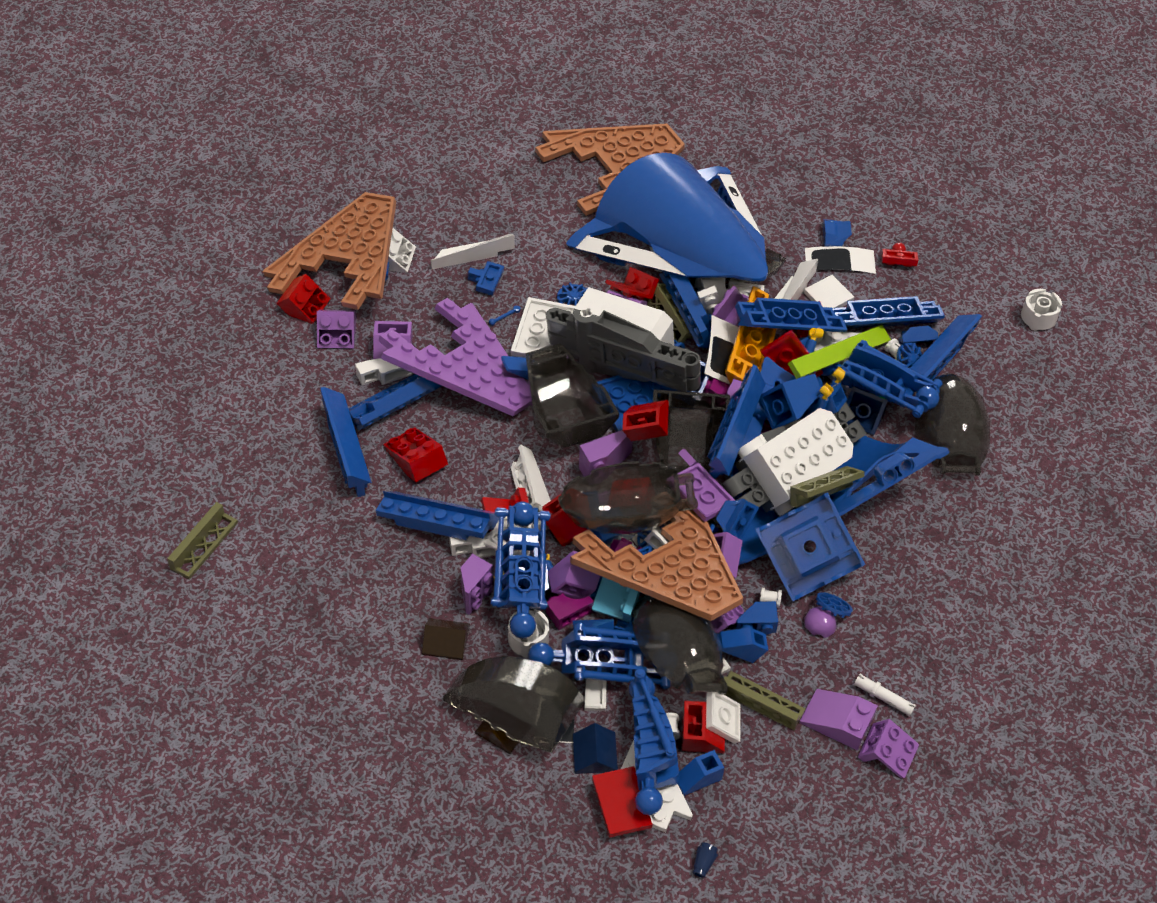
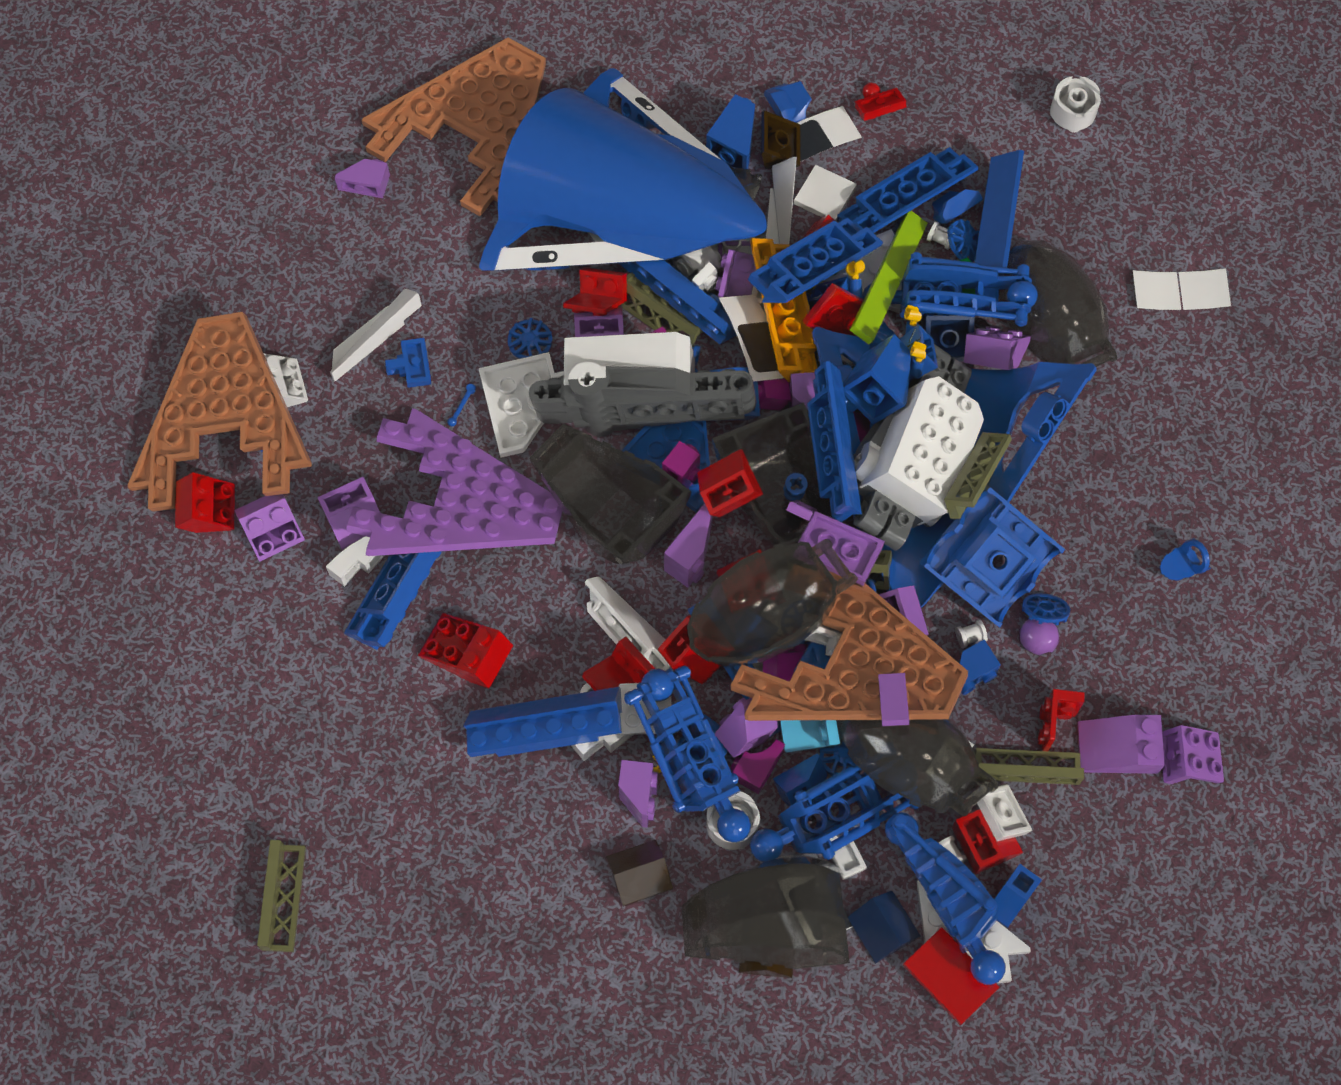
camera: 25 degrees left, 15 degrees up
(345, 440) = (376, 678): blue slope -> none
(515, 365) = (521, 473): blue slope -> none
(523, 164) = (364, 178): none -> medium lavender slope
(623, 398) = (683, 464): none -> magenta brick
(678, 589) = (893, 699): none -> medium lavender tile
(696, 449) = (792, 480): none -> blue bush
(704, 859) = (1071, 994): dark blue cone -> none
(736, 517) = (894, 562): blue slope -> none
(744, 643) = (979, 710): blue slope -> none
(784, 230) = (733, 133): none -> blue slope
(807, 666) = (1060, 705): none -> red bracket
(814, 246) = (779, 139): none -> dark brown slope
(884, 694) = (1153, 692): white pin -> none
(892, 427) = (995, 348): none -> medium lavender slope
(956, 621) = (1184, 562): none -> blue piece
(1067, 459) = (1198, 290): none -> white sticker

